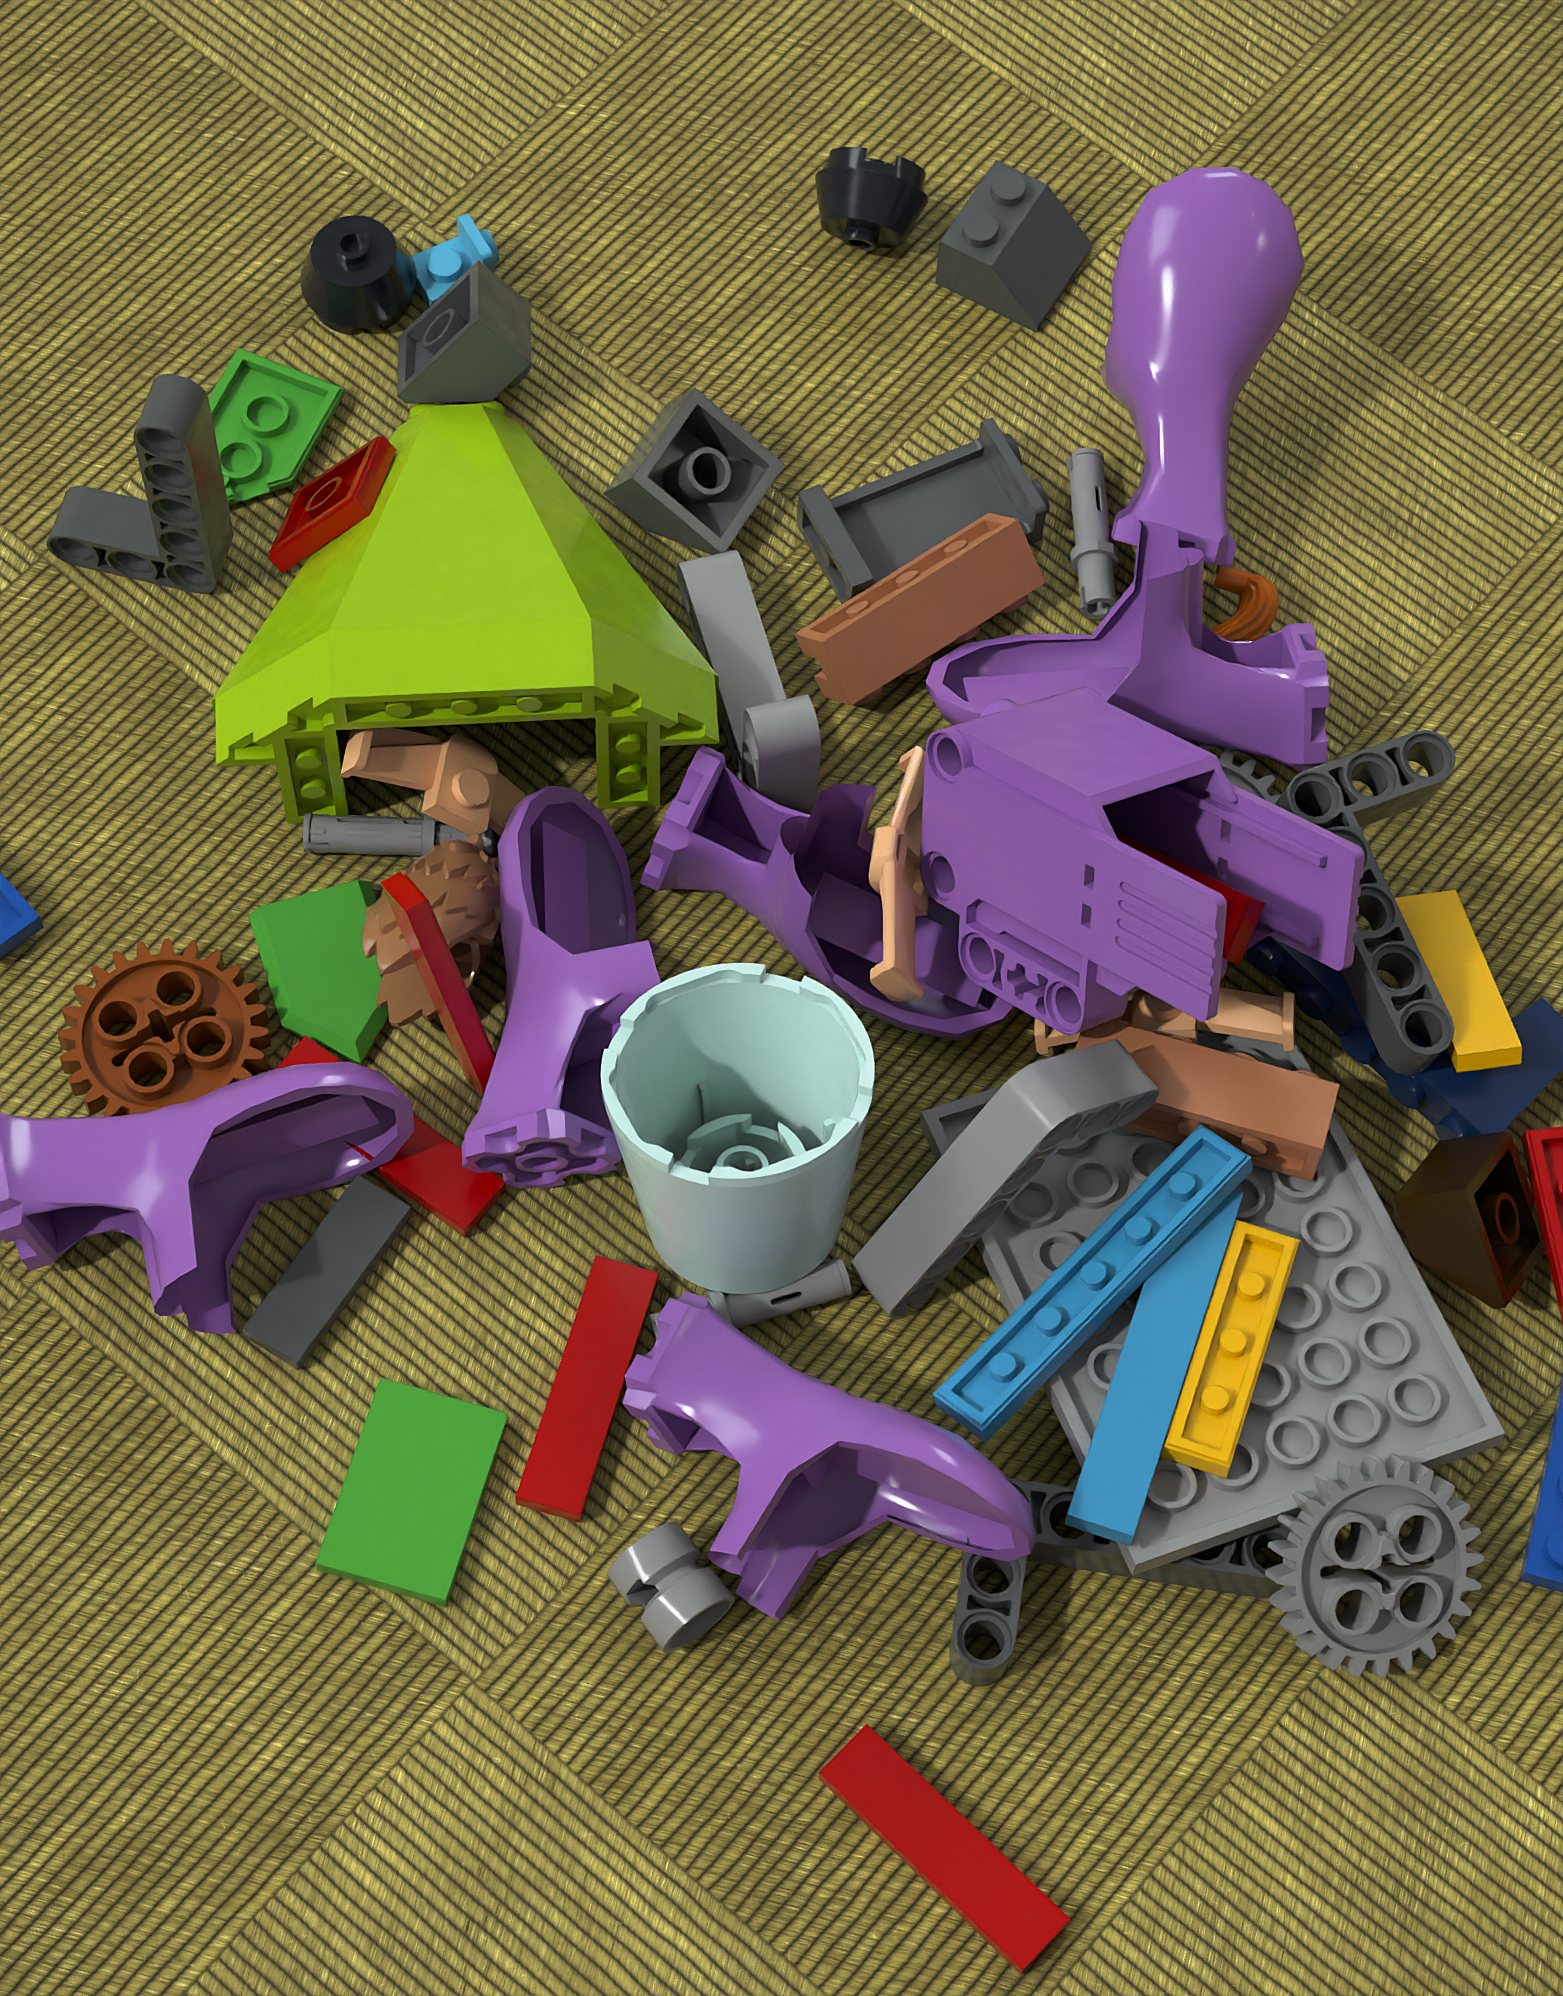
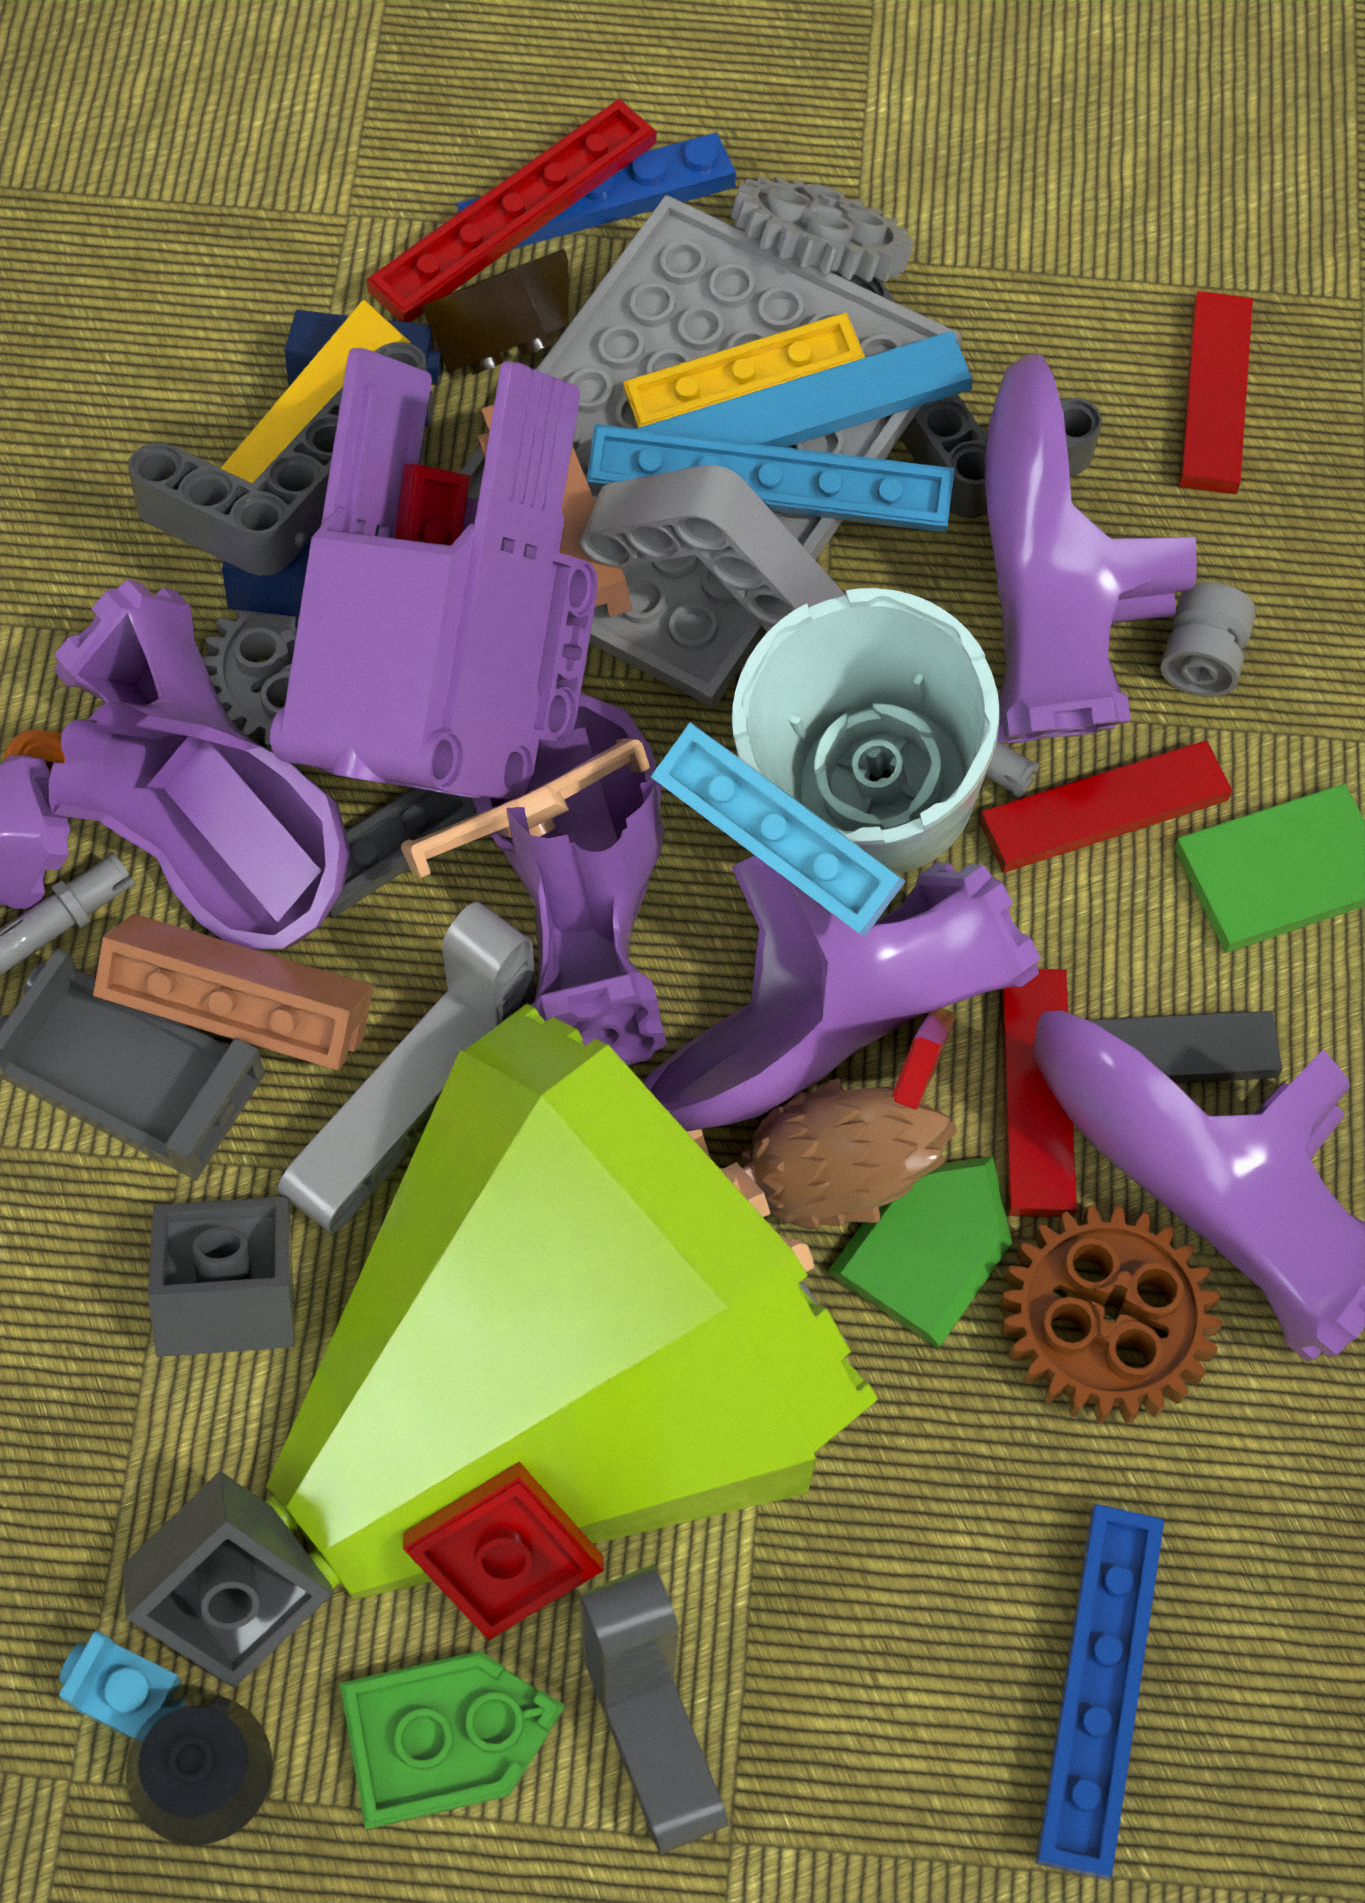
camera: 125 degrees left, 0 degrees up
(690, 941) = (778, 829): none -> medium azure plate

